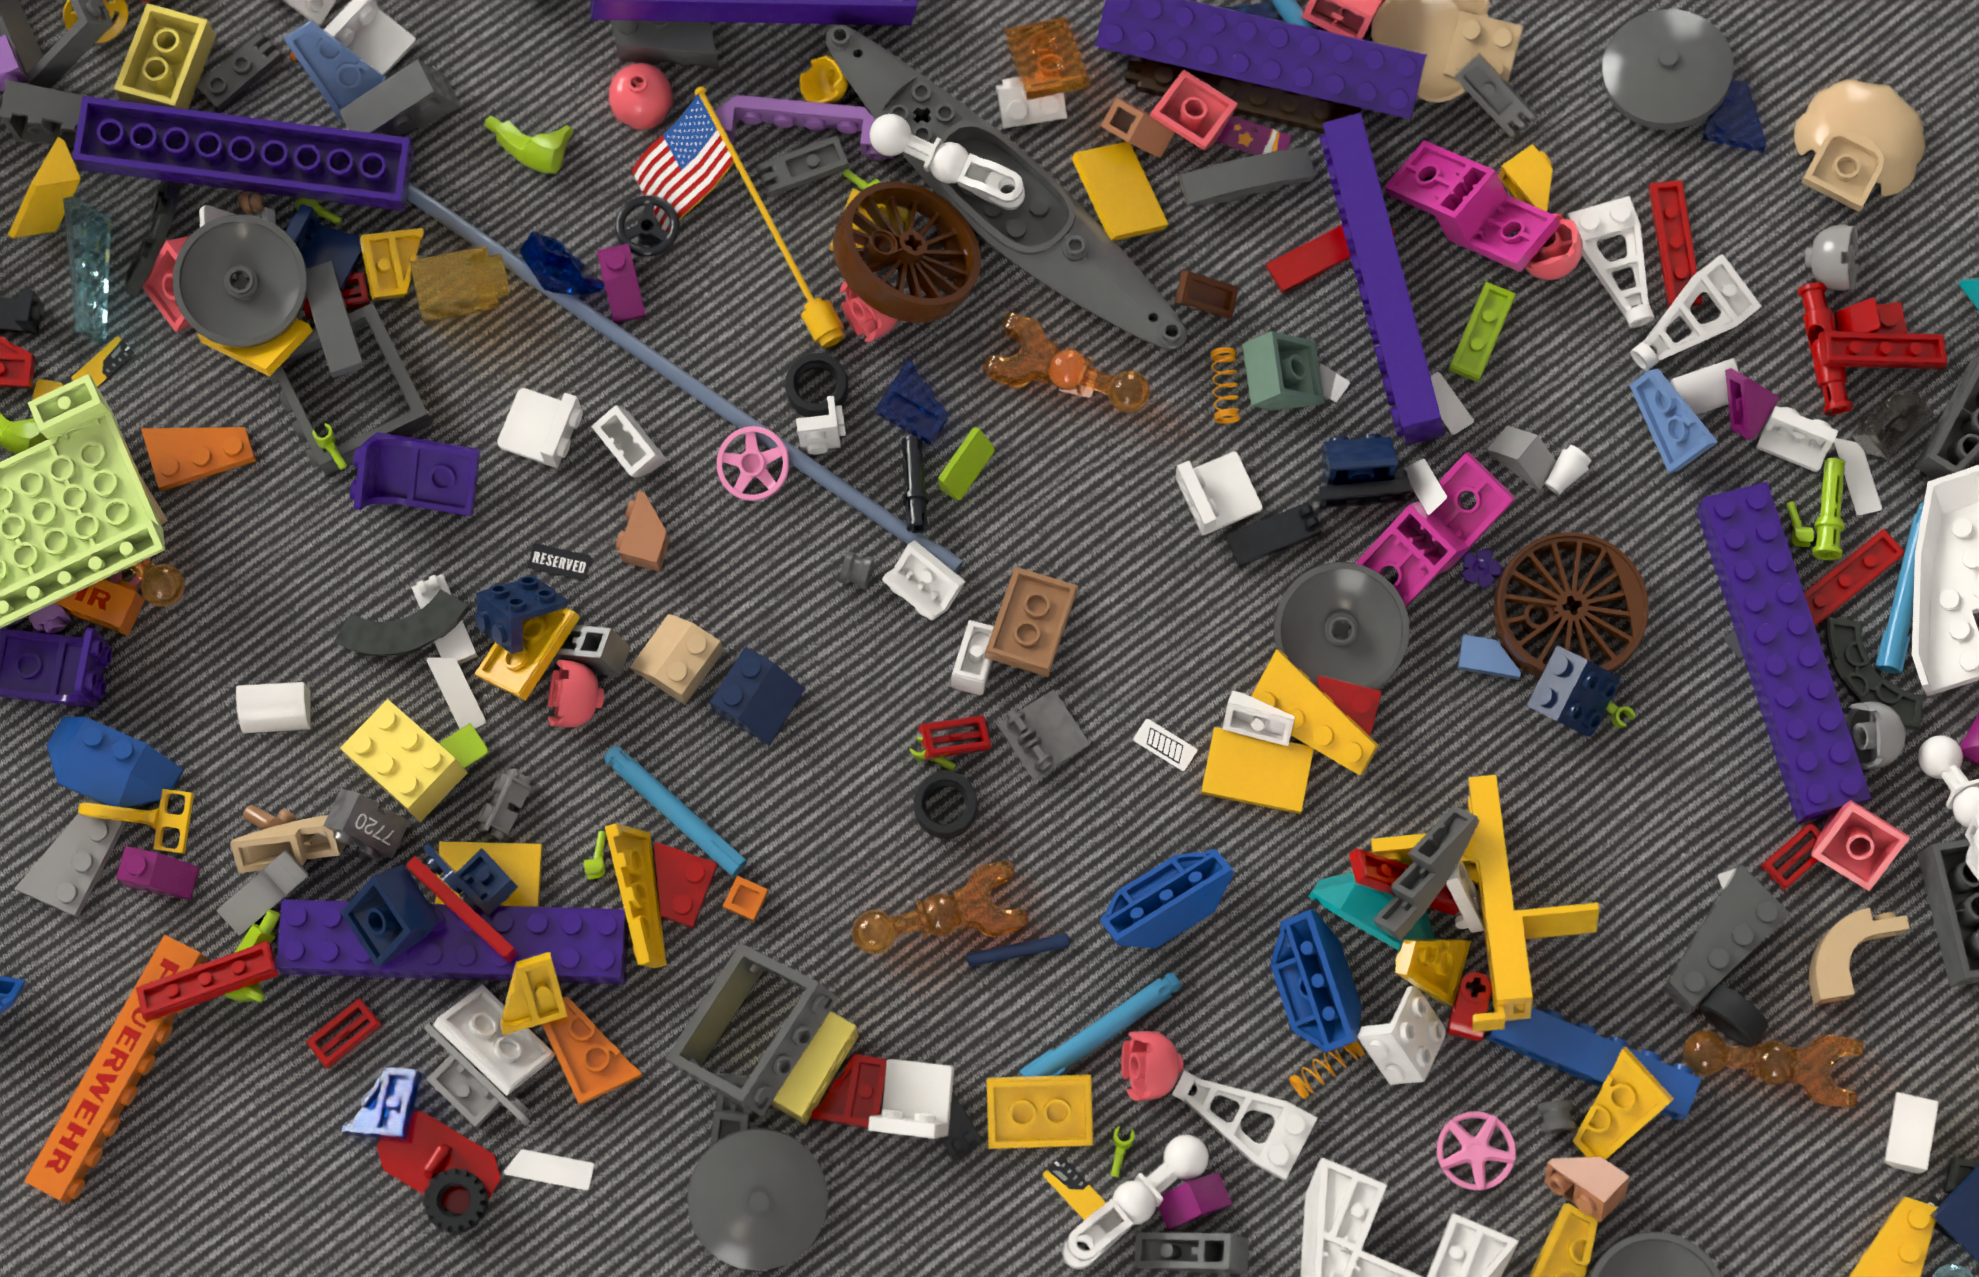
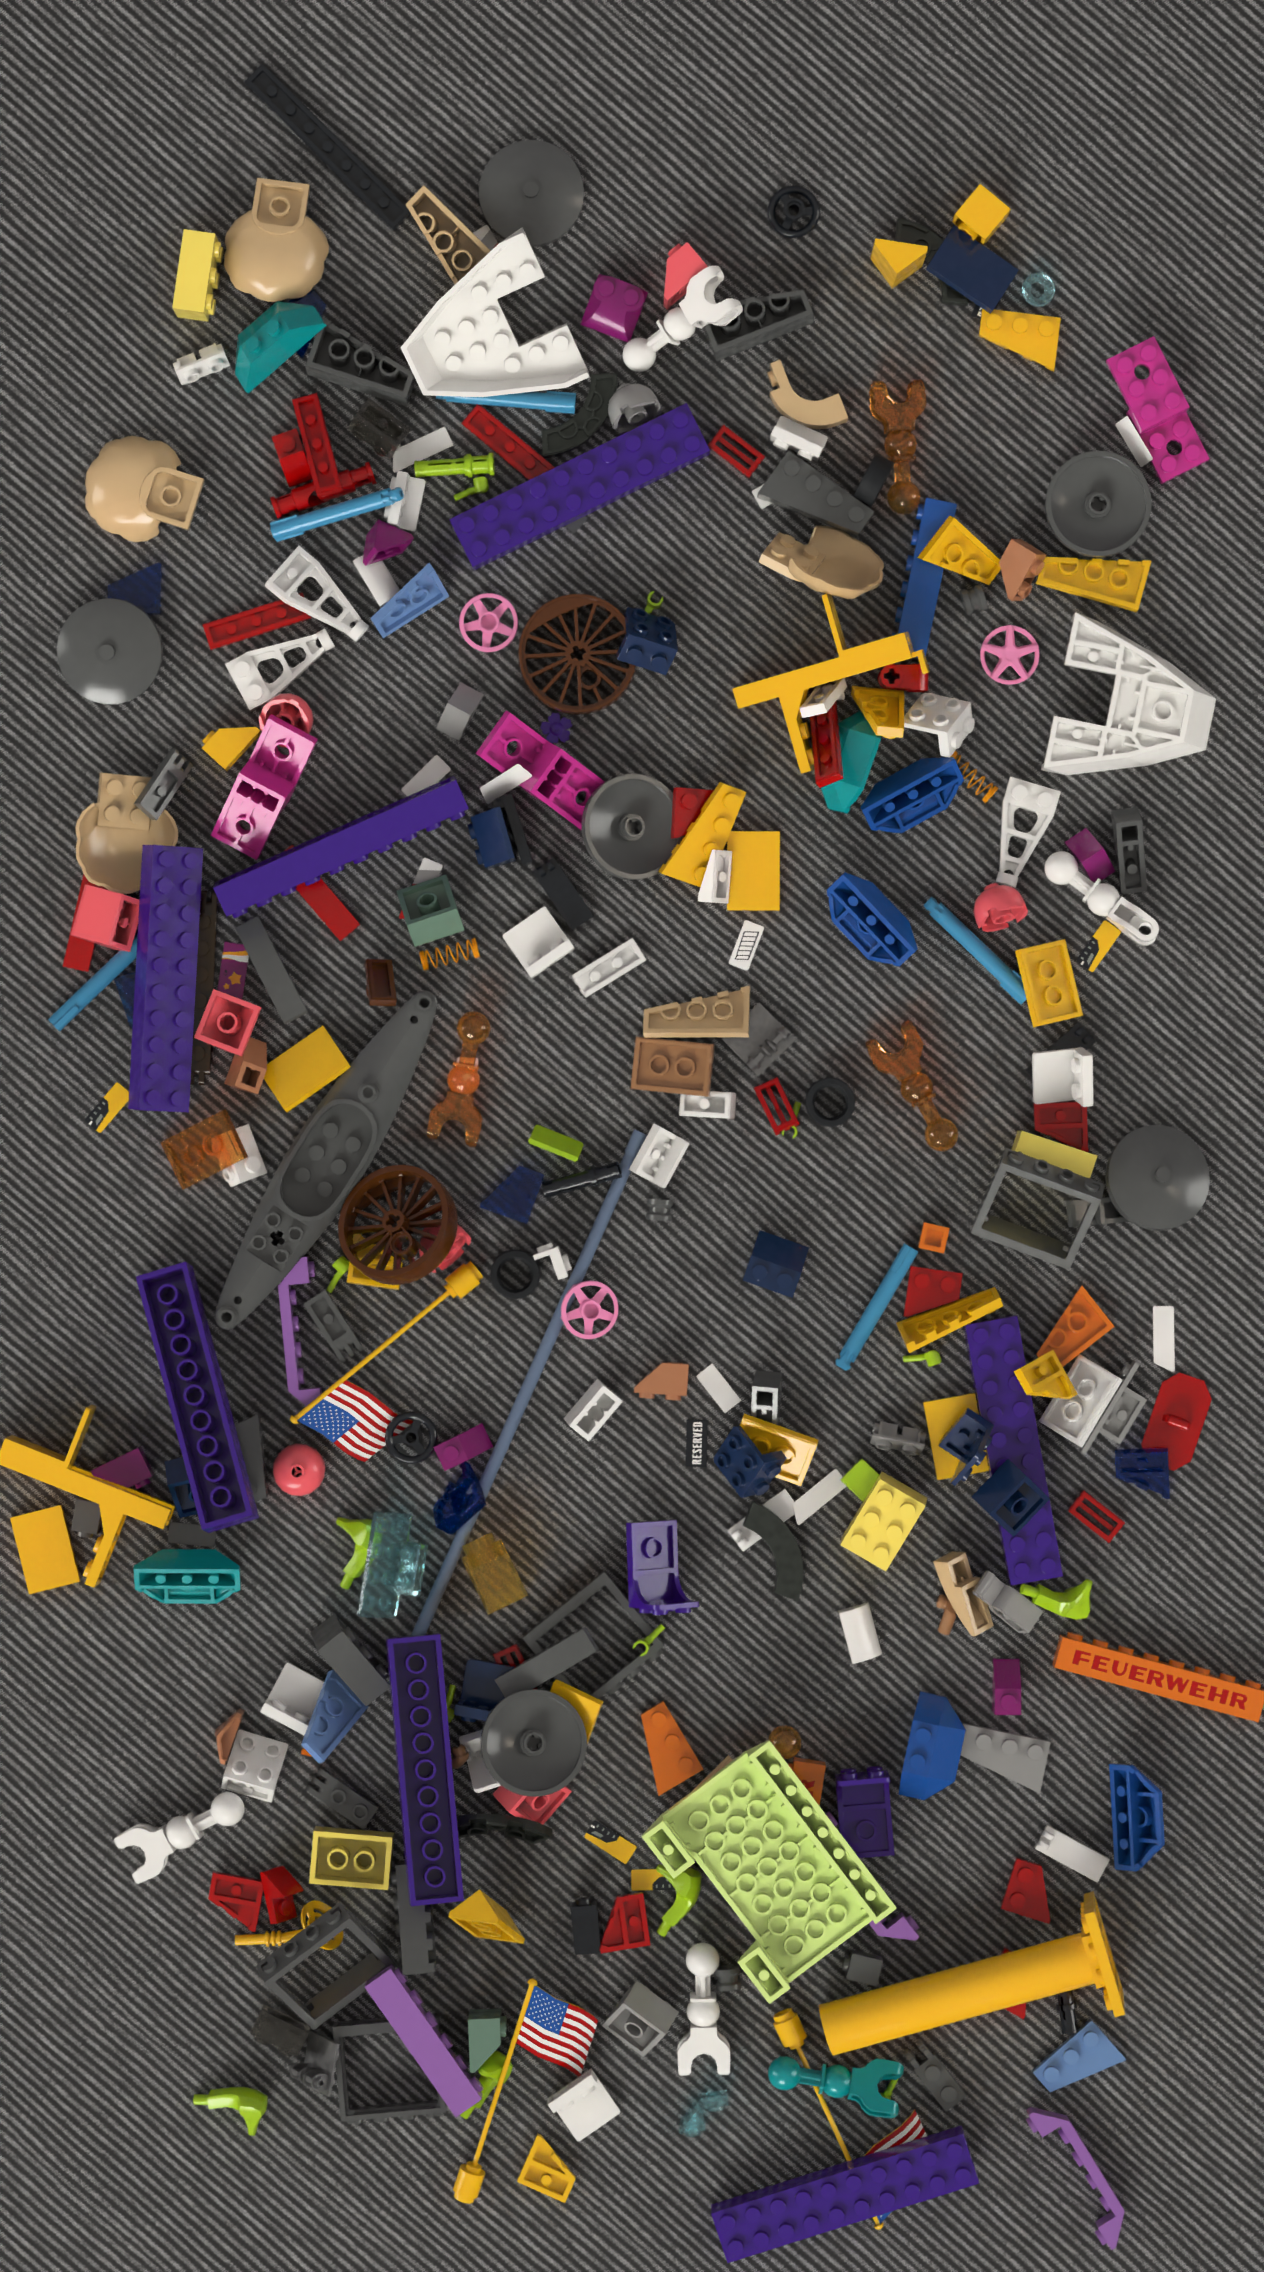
camera: 105 degrees left, 15 degrees up
(89, 256) = (534, 1872): clear light blue wing -> none
(157, 818) = (963, 1700): yellow piece -> none
(206, 981) = (1085, 1624): red tile -> none
(361, 821) = (940, 1536): flat silver brick -> none
(388, 261) = (481, 1634): yellow wing -> none
(435, 1193) = (1214, 1413): black tyre -> none
(461, 909) = (996, 1444): red tile -> none
(500, 170) = (391, 1565): none -> clear light blue bracket
(540, 426) = (593, 1483): white bracket -> none
(573, 694) = (805, 1404): coral cylinder -> none
(620, 601) = (718, 1388): none -> white sticker
(678, 657) = (756, 1334): tan slope -> none
(823, 81) = (261, 1325): yellow hair -> none
(948, 162) = (319, 1205): white piece -> none
(1018, 950) = (929, 1024): dark blue bar -> none
(1082, 681) = (707, 1017): none -> tan wing
(1121, 1147) = (1064, 917): lime hand -> none
(1170, 570) = (608, 967): none -> white hinge
(1432, 865) = (816, 723): dark grey slope -> none
(1482, 332) = (361, 761): lime tile -> none
(1486, 657) = (627, 713): medium blue tile -> none
(1567, 469) = (464, 675): white cone -> none
(1628, 513) = (488, 622): none -> bright pink wheel
(1630, 941) = (828, 563): none -> tan animal
(1788, 310) = (298, 524): none -> dark azure piece
(1803, 935) = (798, 438): none -> white bracket
(1834, 257) = (248, 493): light grey cylinder -> none
(1858, 844) = (723, 407): coral slope -> none
(1911, 1133) = (932, 336): white brick -> none

